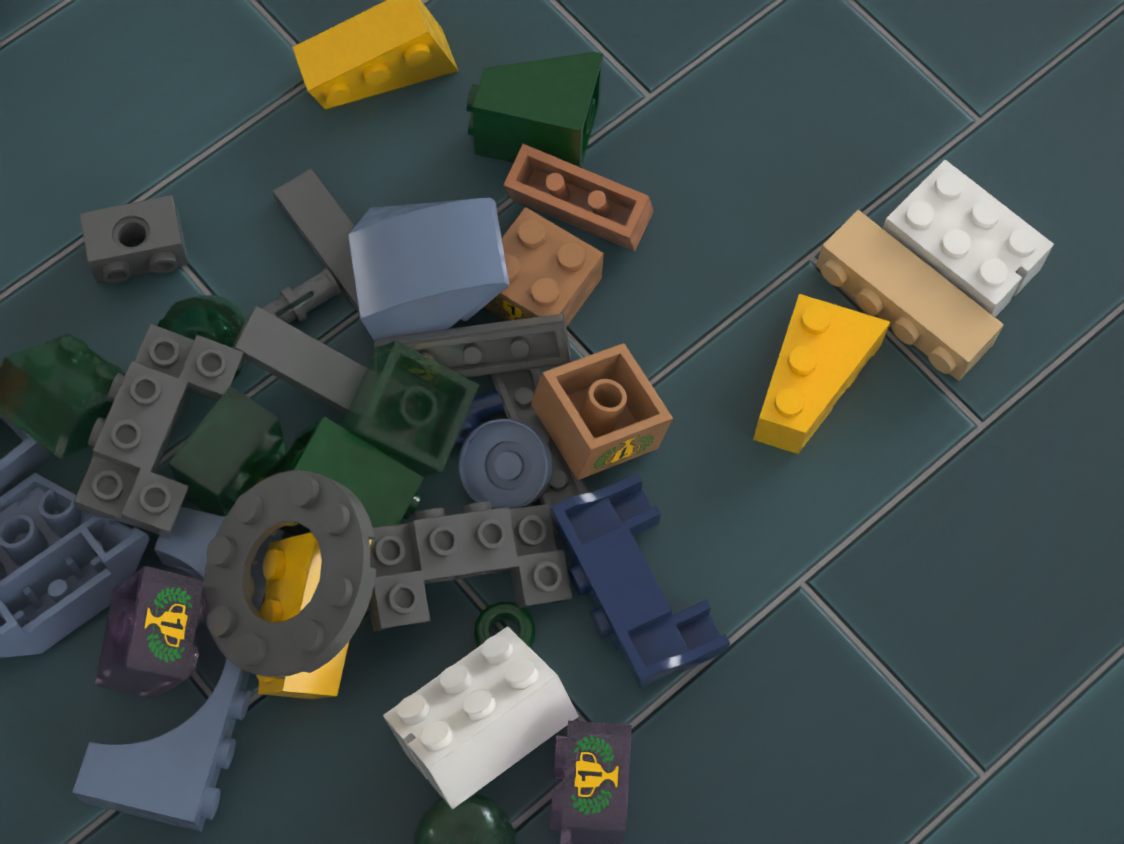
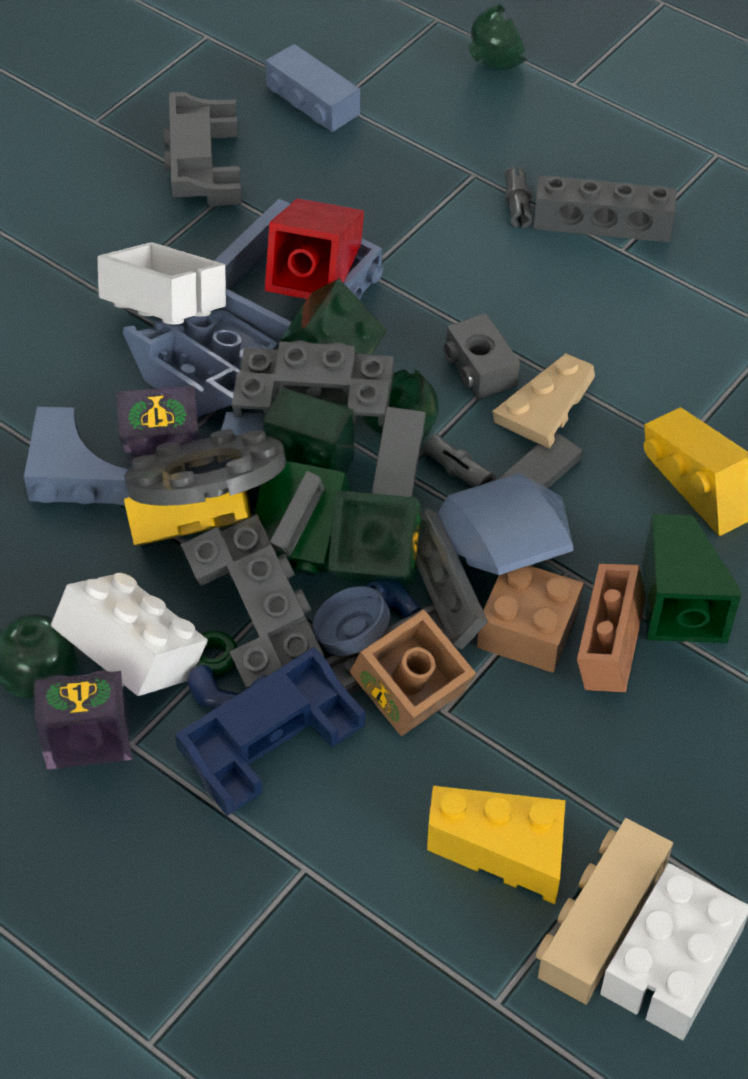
camera: 80 degrees right, 15 degrees down
(224, 187) = (545, 401): none -> tan wing
(372, 482) = (297, 514): none -> dark grey tile
(562, 645) = (205, 688): none -> dark blue arm

